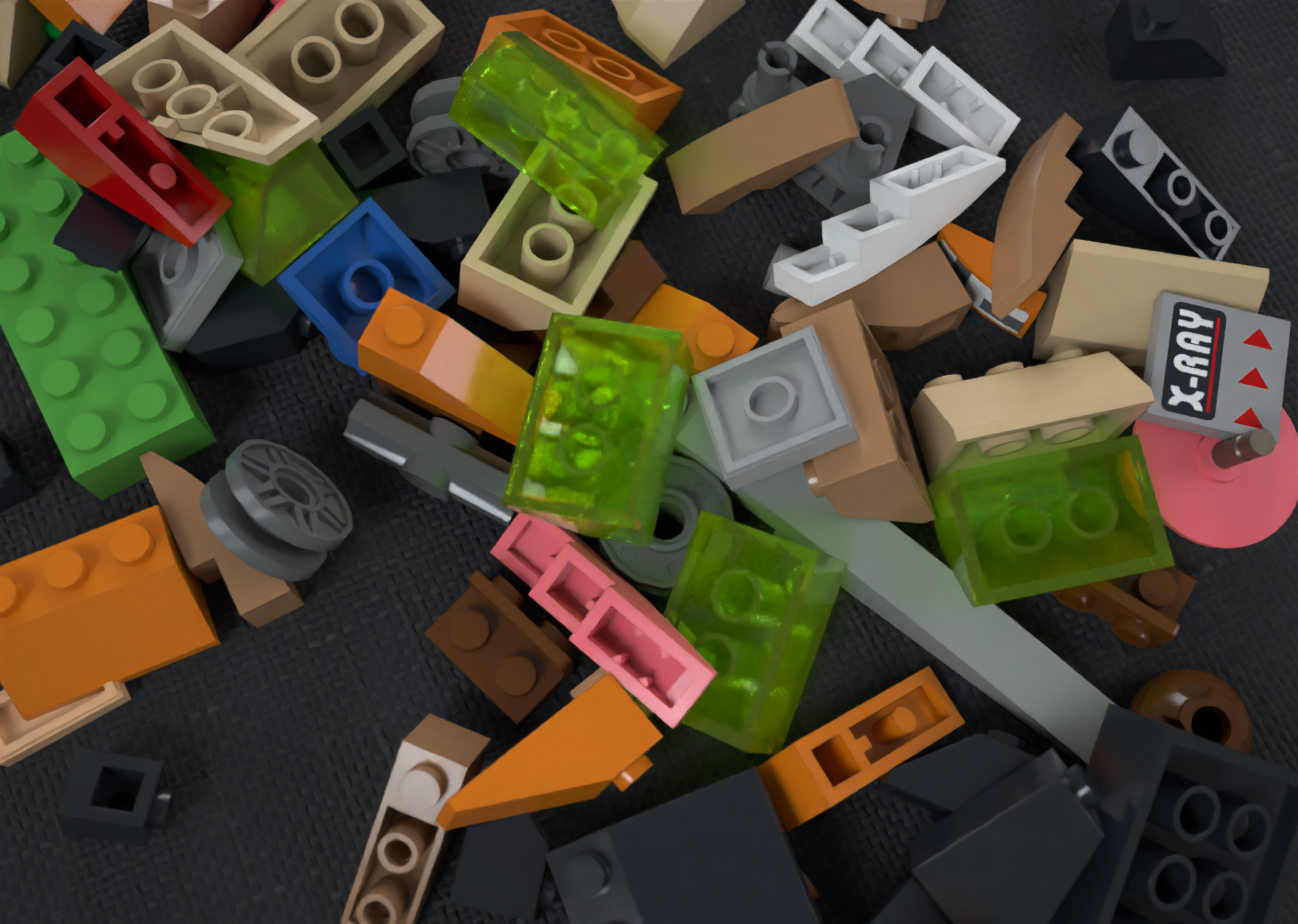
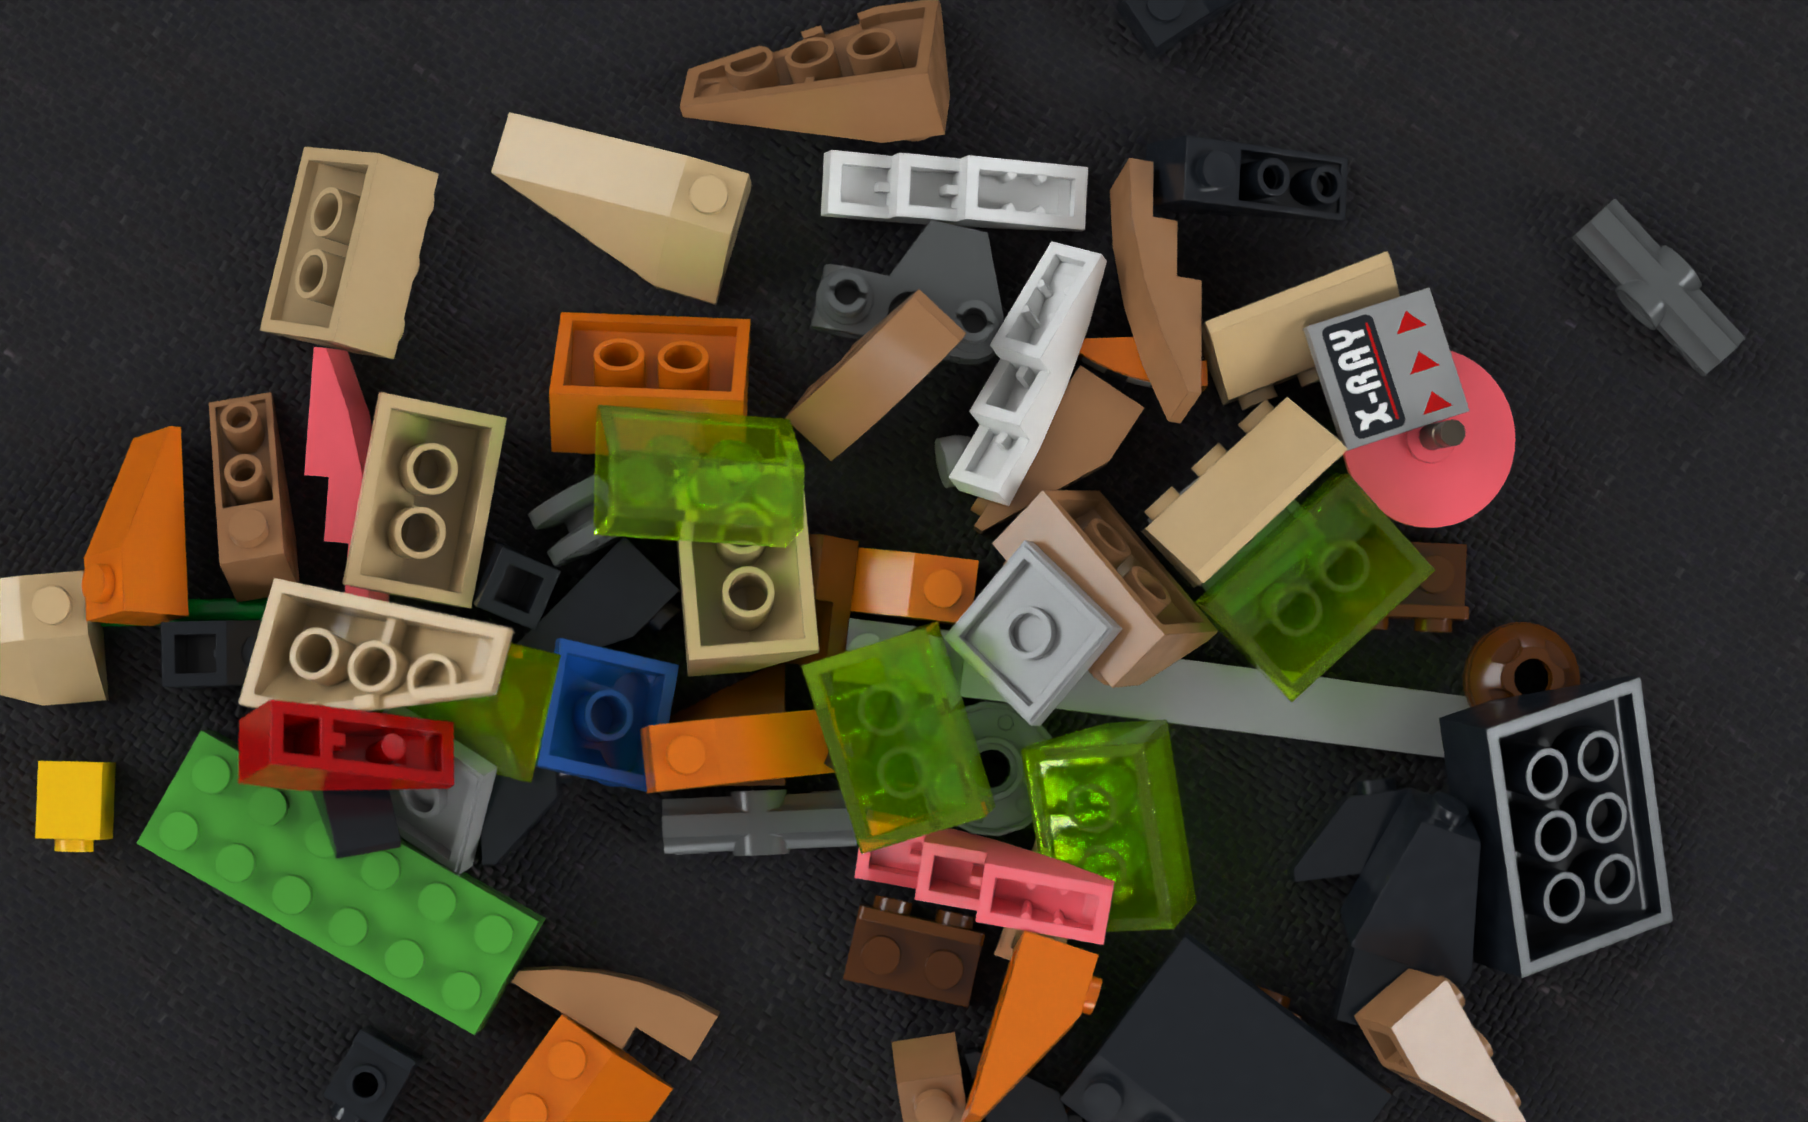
camera: 30 degrees left, 15 degrees up
(275, 510) = (662, 957): dark grey wheel -> none
(858, 747) = (1259, 859): orange slope -> none

